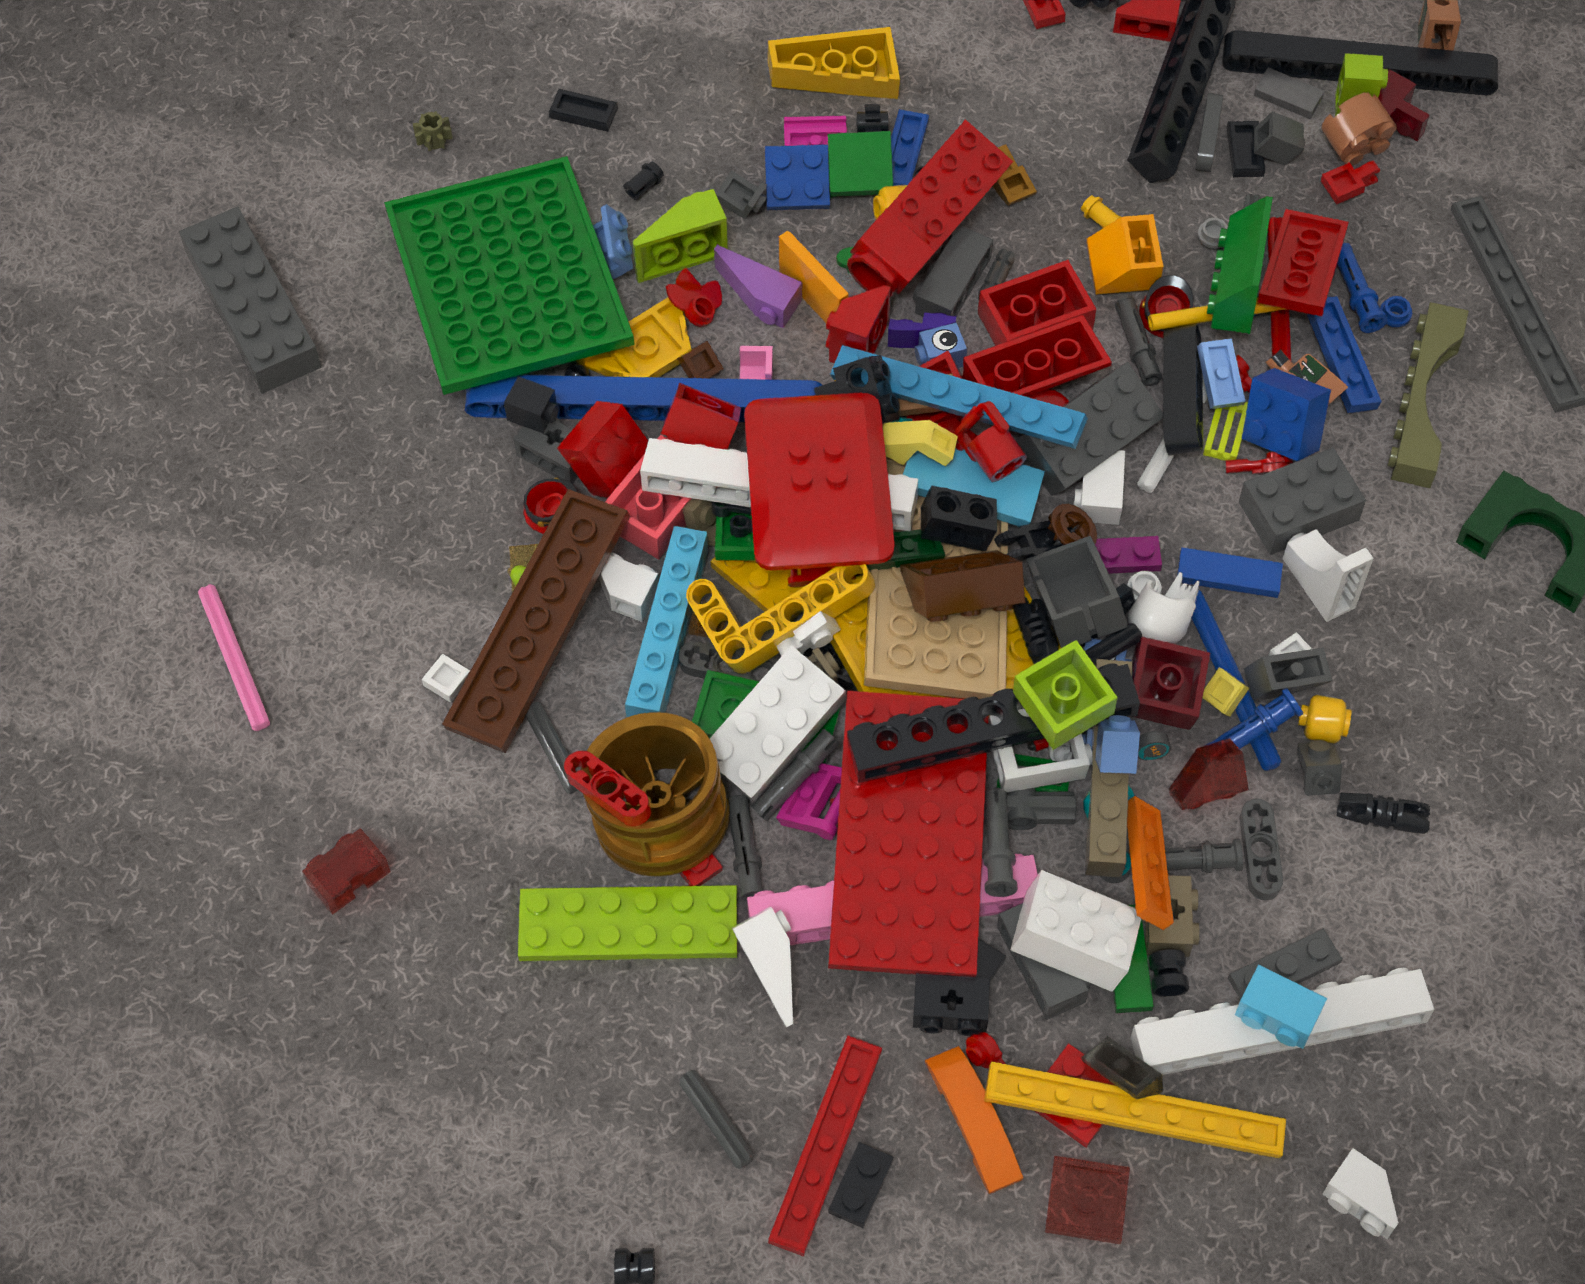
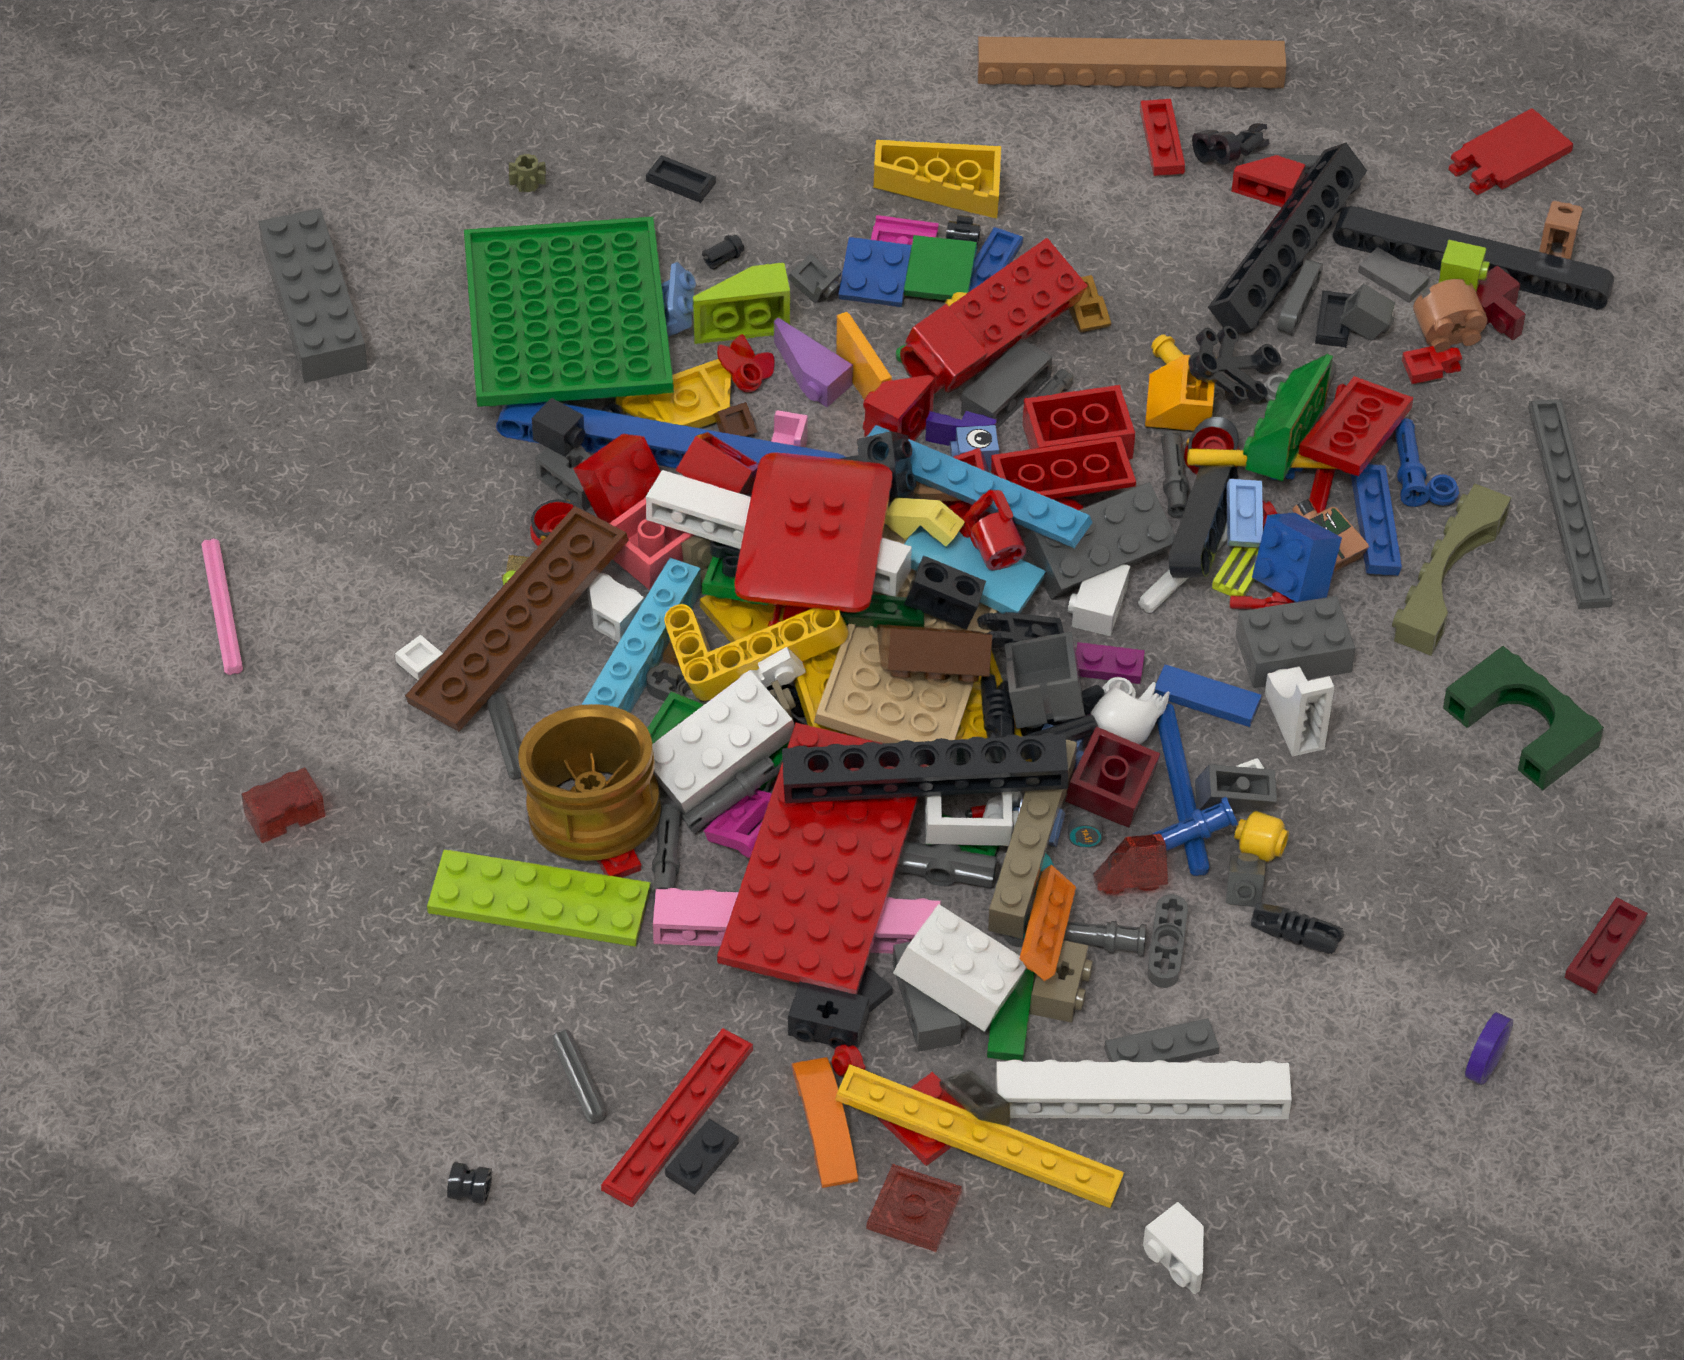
camera: 10 degrees right, 10 degrees down
(611, 802) = (543, 770): red beam -> none
(768, 951) = (663, 936): white slope -> none
(999, 856) = (905, 894): dark grey pin -> none
(1064, 694) = (993, 745): lime brick -> none
(1069, 516) = (1060, 616): reddish brown gear -> none
(1117, 745) = (1039, 806): medium blue brick -> none
(1150, 227) = (1207, 367): none -> black plant
(1168, 973) = (1045, 1028): black wheel -> none
(1224, 691) = (1170, 796): light yellow tile -> none
(1280, 1007) = (1139, 1066): medium azure brick -> none

